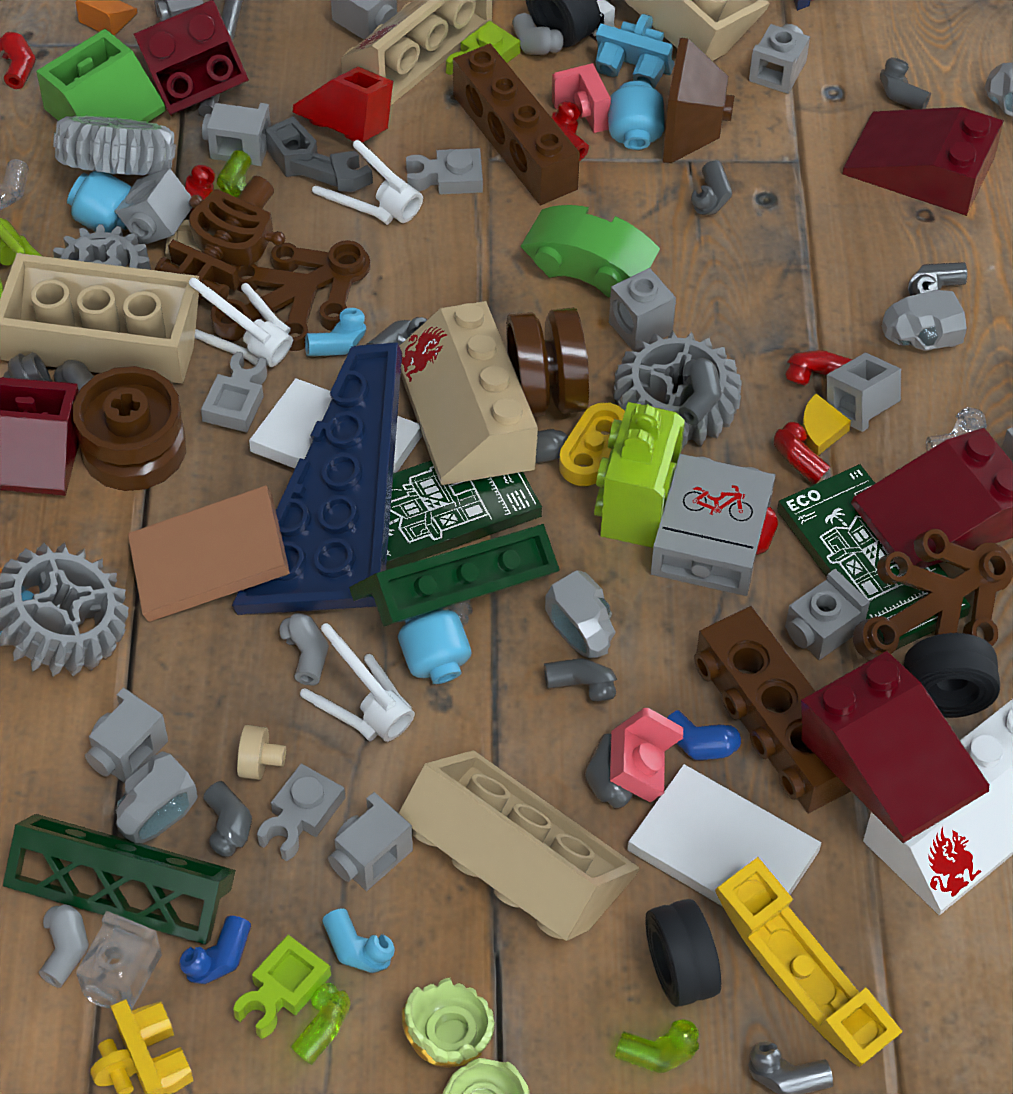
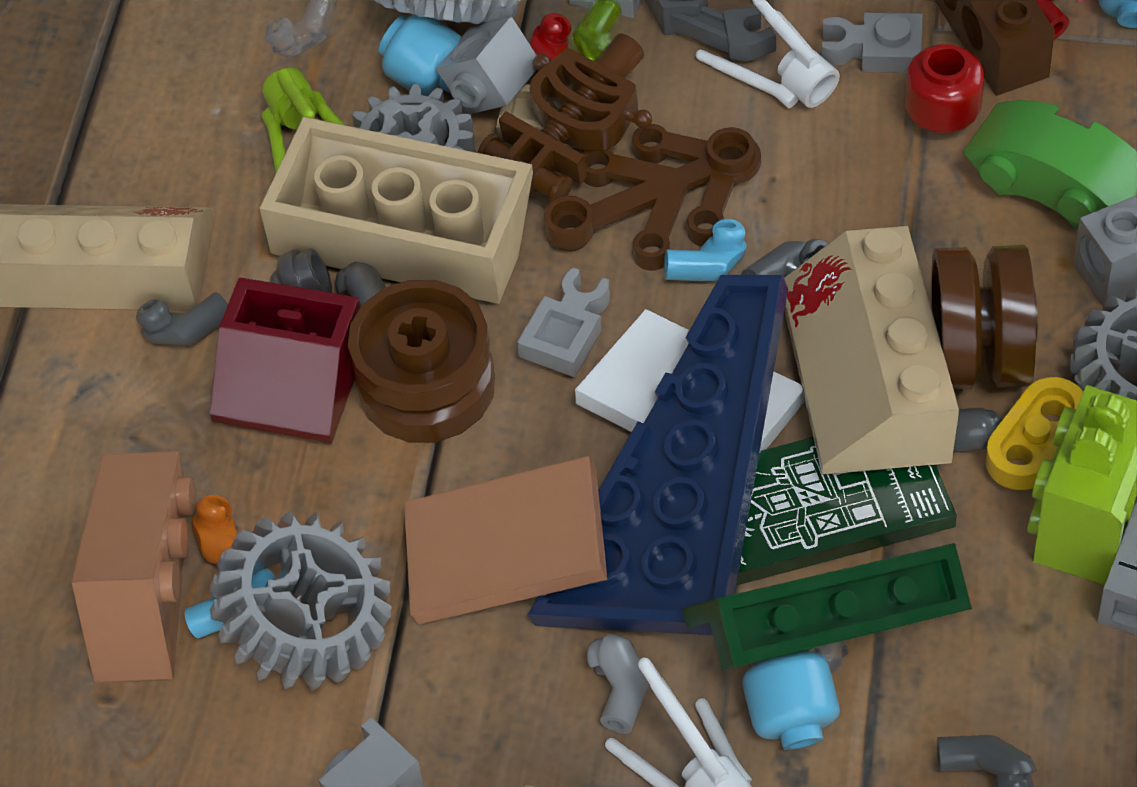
camera: 15 degrees right, 0 degrees up
(263, 338) = (610, 253): white plant -> none
(502, 201) = (944, 88): none -> red head
(581, 614) = (995, 673): light grey rock -> none

